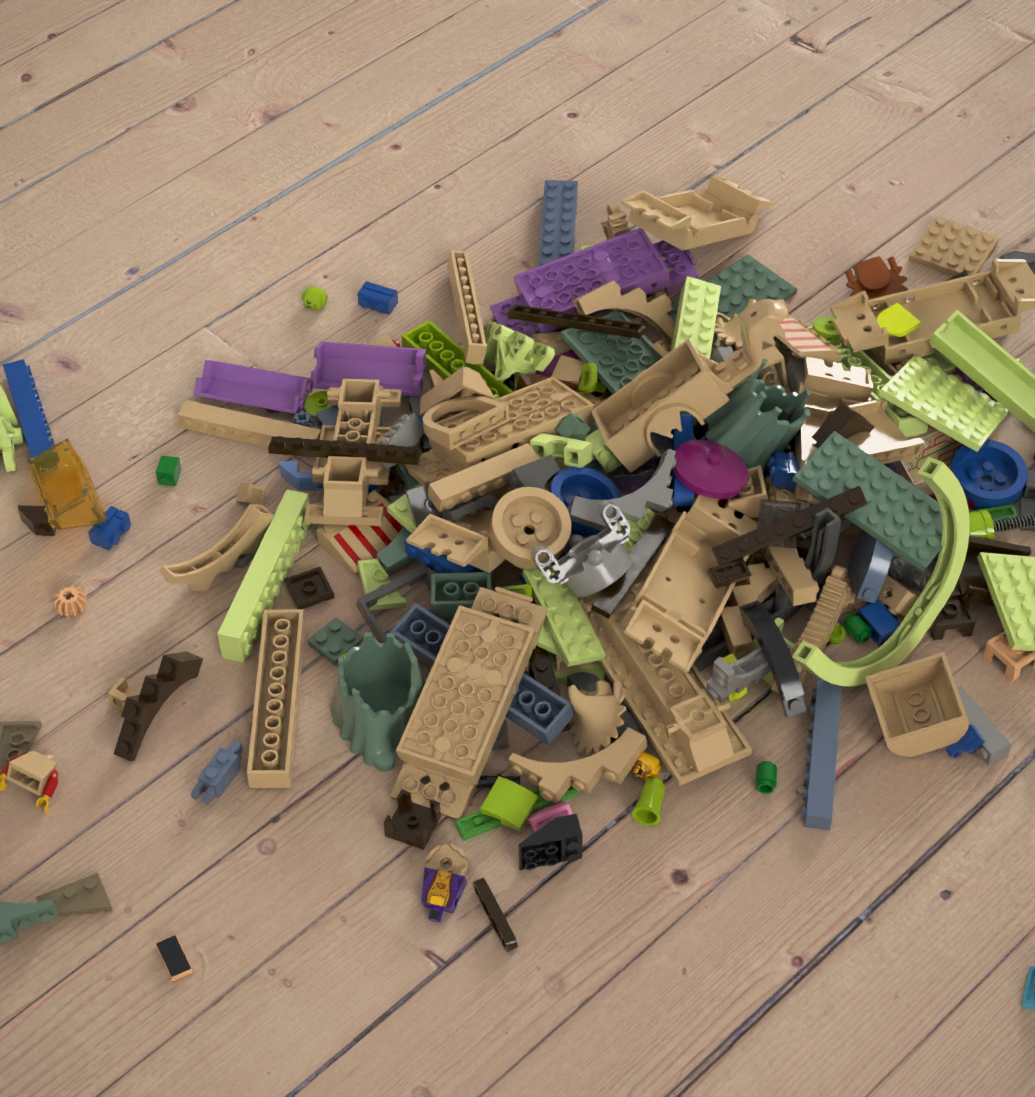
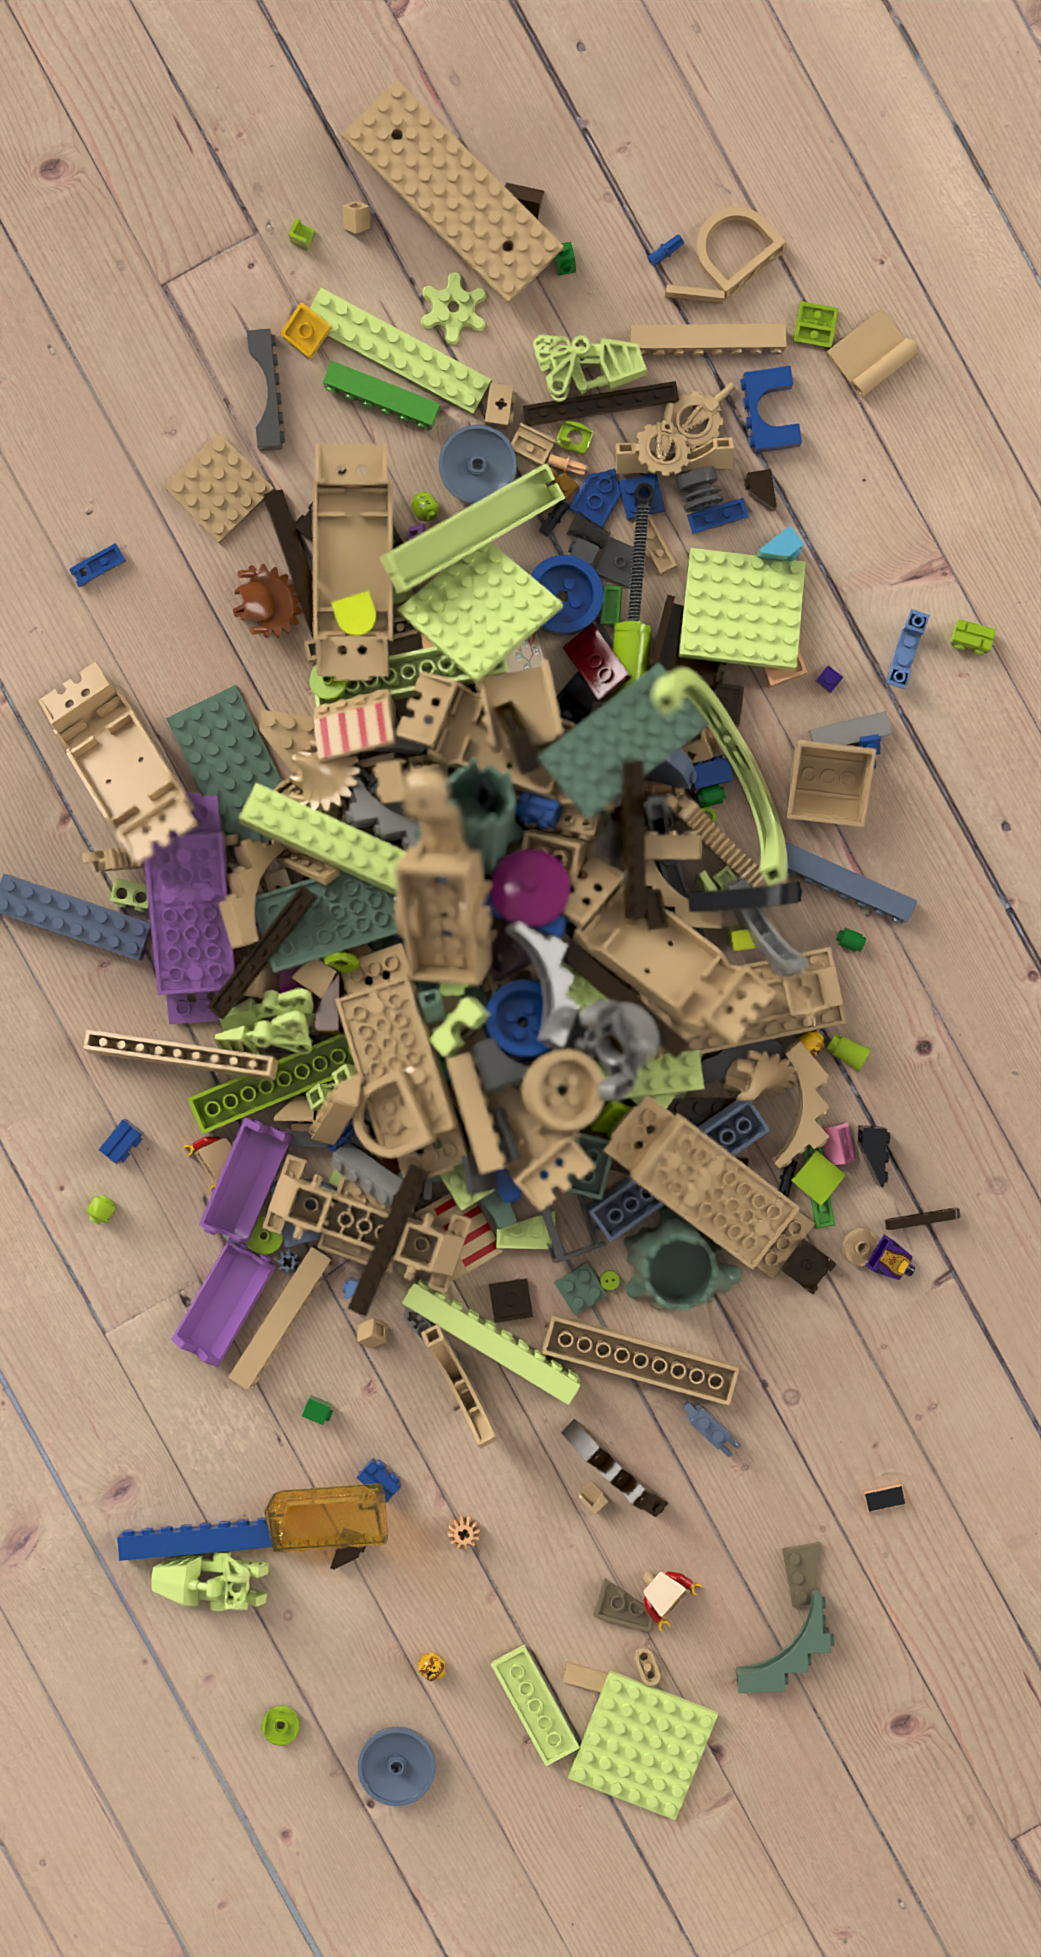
camera: 75 degrees left, 40 degrees up
(852, 192) = (98, 564): none -> blue plate
(1017, 700) = (829, 679): none -> dark purple plate

